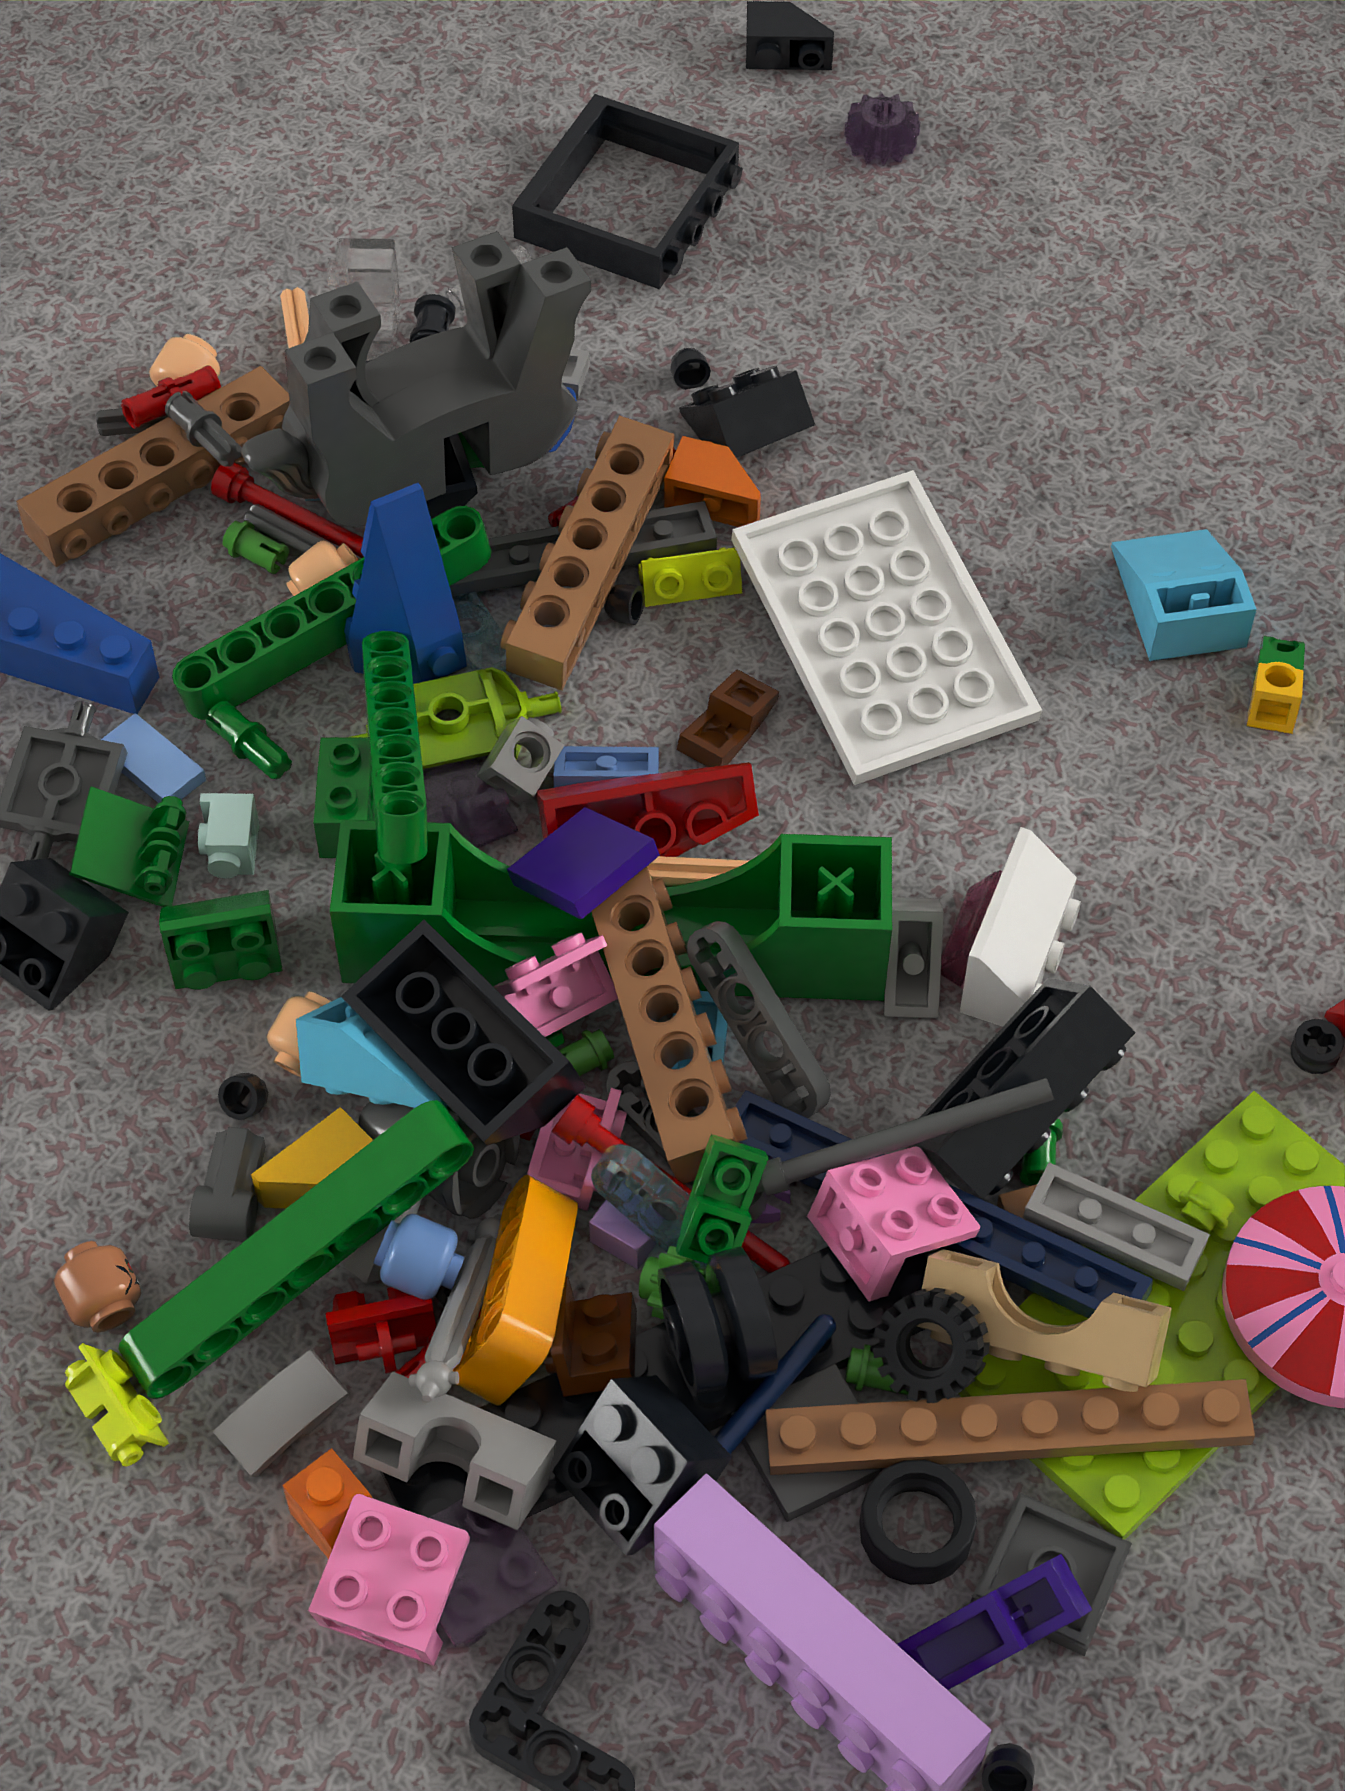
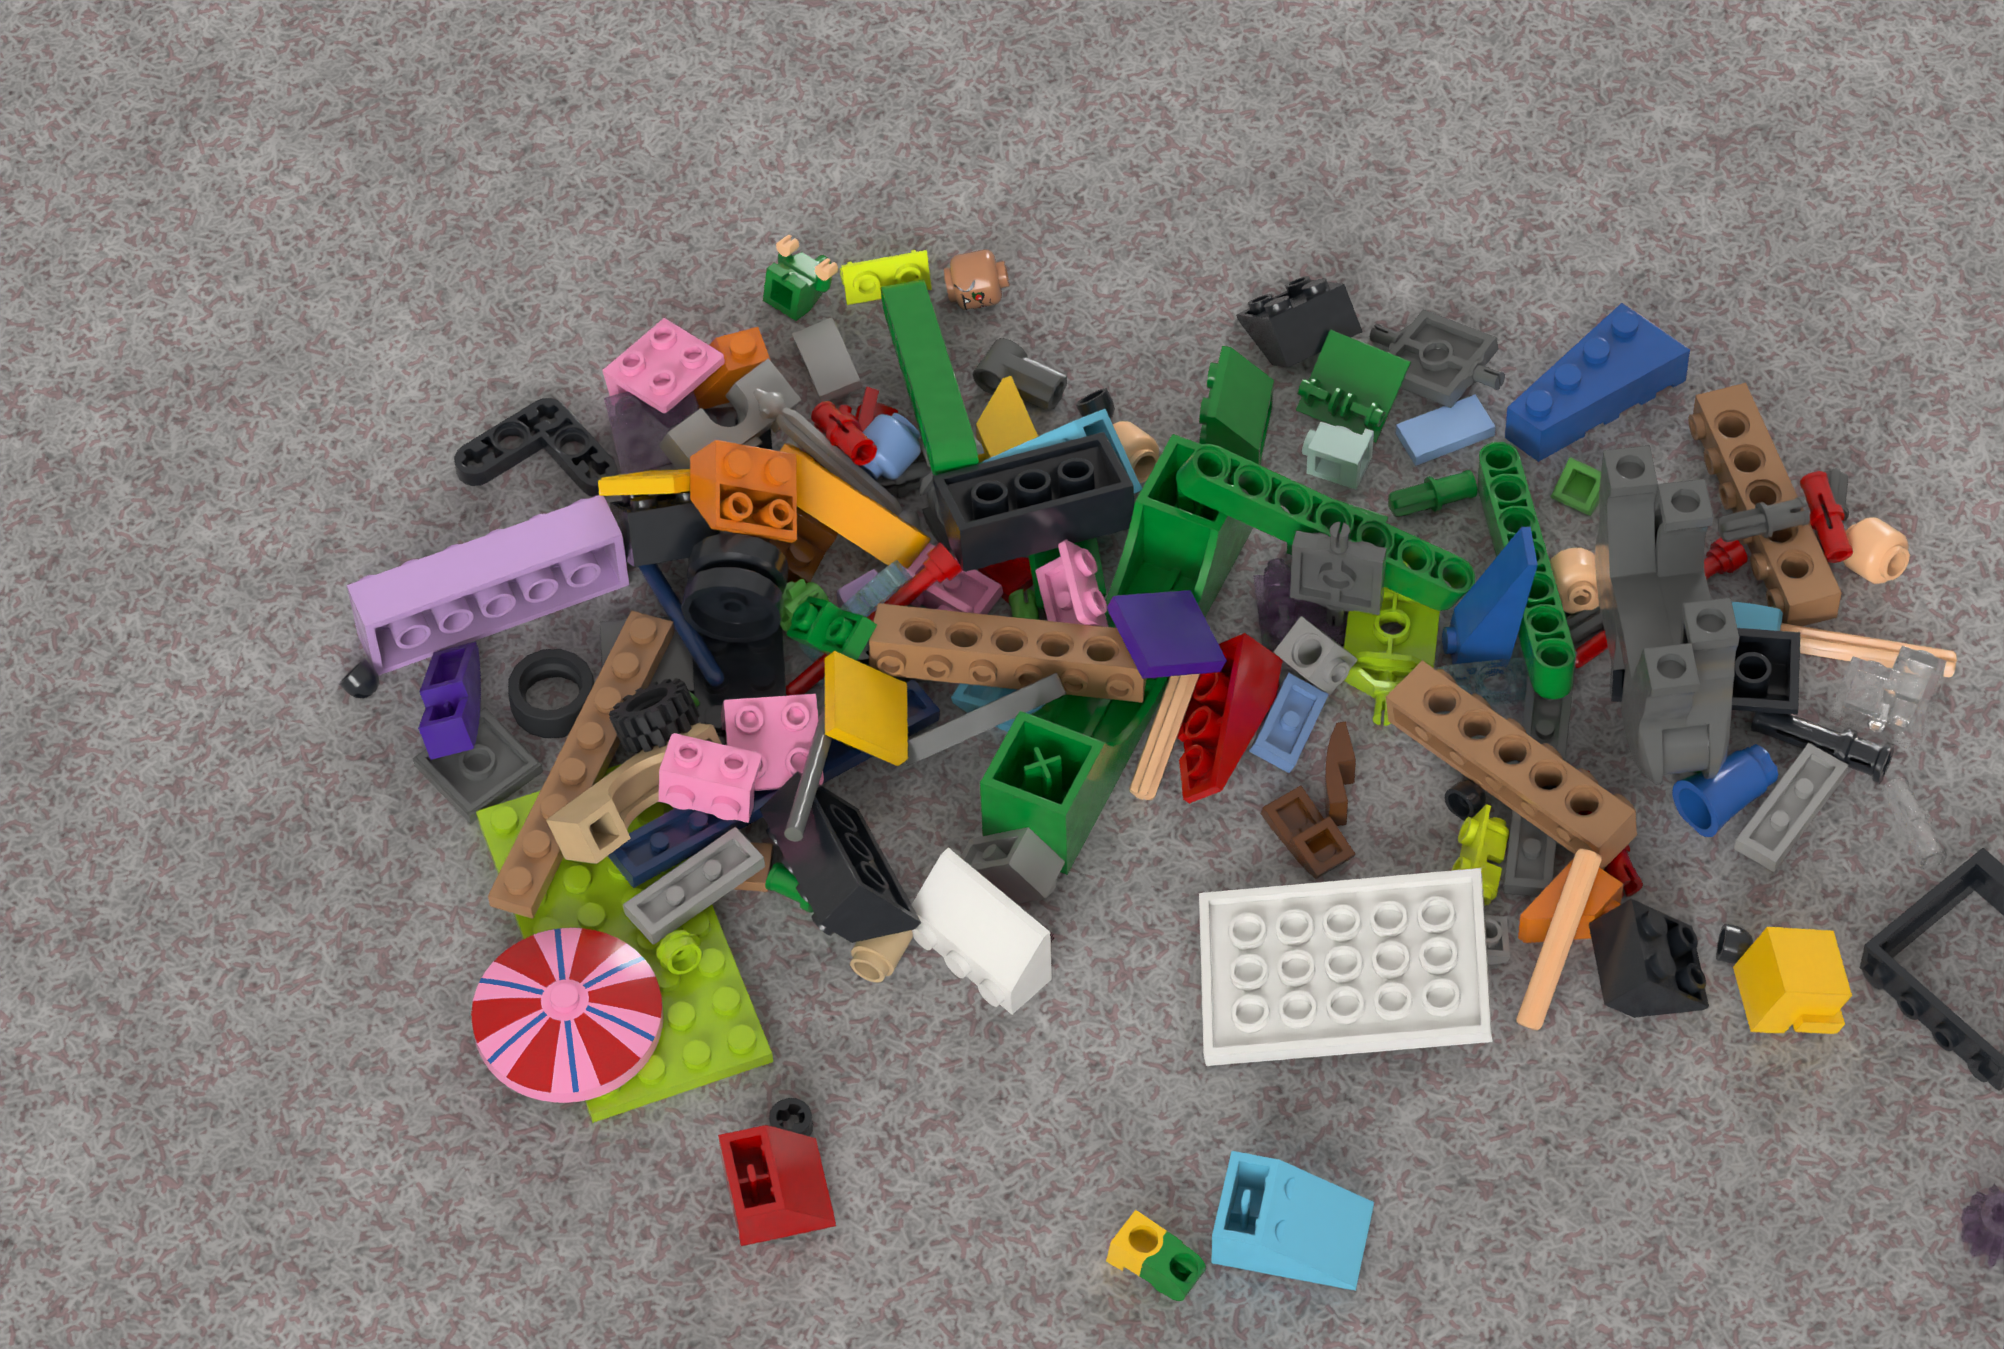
camera: 115 degrees right, 0 degrees up
(164, 1495) = (796, 280): none -> green piece
(182, 624) = (1578, 487): none -> bright green slope
(436, 726) = (1338, 573): none -> dark grey plate
(452, 1262) = (844, 433): none -> red pin
(606, 1325) = (745, 490): none -> orange slope
(607, 1461) = (646, 483): none -> yellow tile
(640, 712) = (1338, 772): none -> reddish brown slope
(717, 303) = (1793, 980): none -> yellow plate
(766, 462) = (1559, 939): none -> light nougat axle
(813, 1125) = (866, 708): none -> yellow tile
(997, 1230) = (708, 777): none -> bright pink bracket

